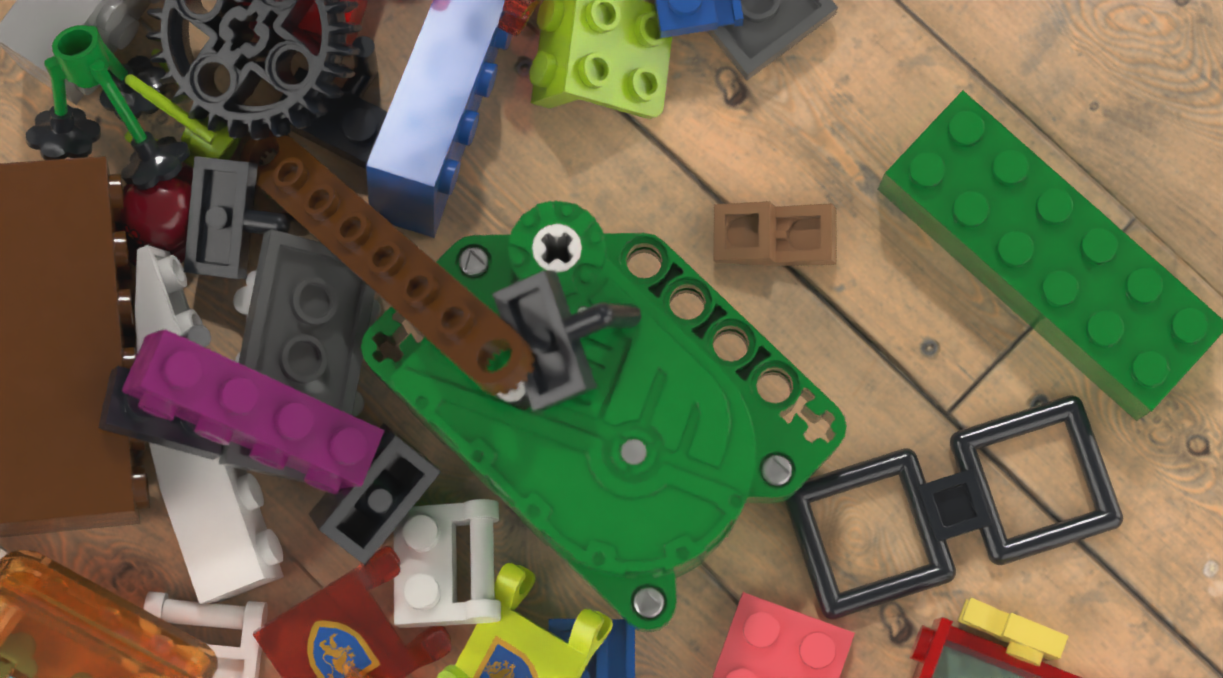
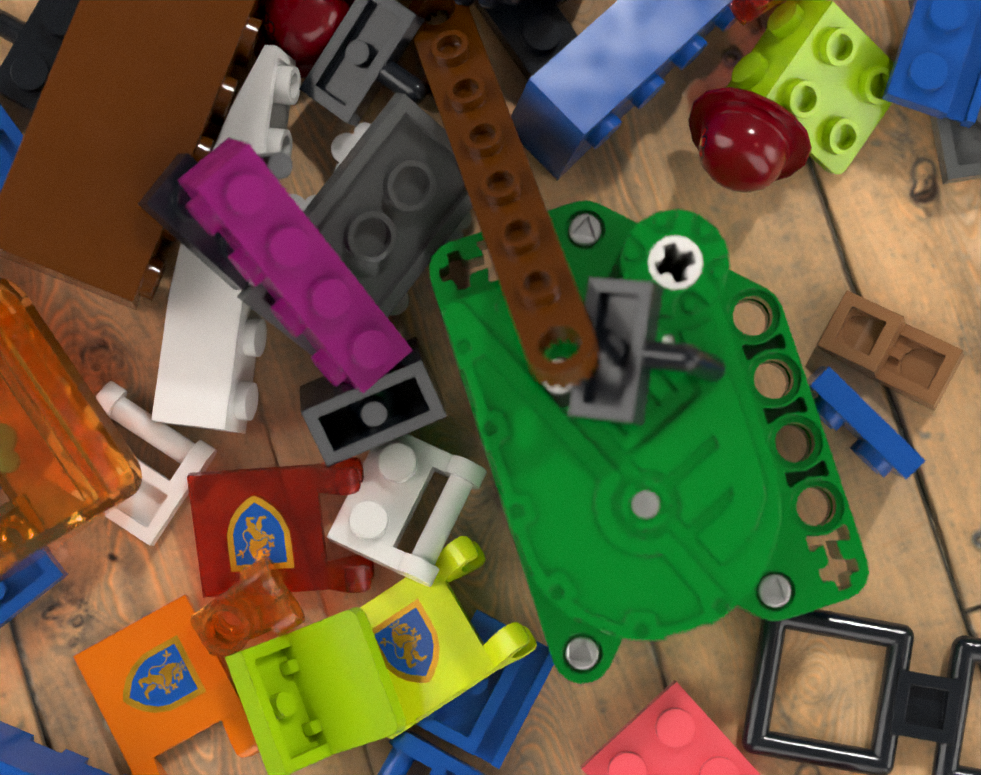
camera: 25 degrees right, 5 degrees up
(569, 124) = (746, 139): none -> dark red hat
(803, 312) = (877, 441): none -> blue plate

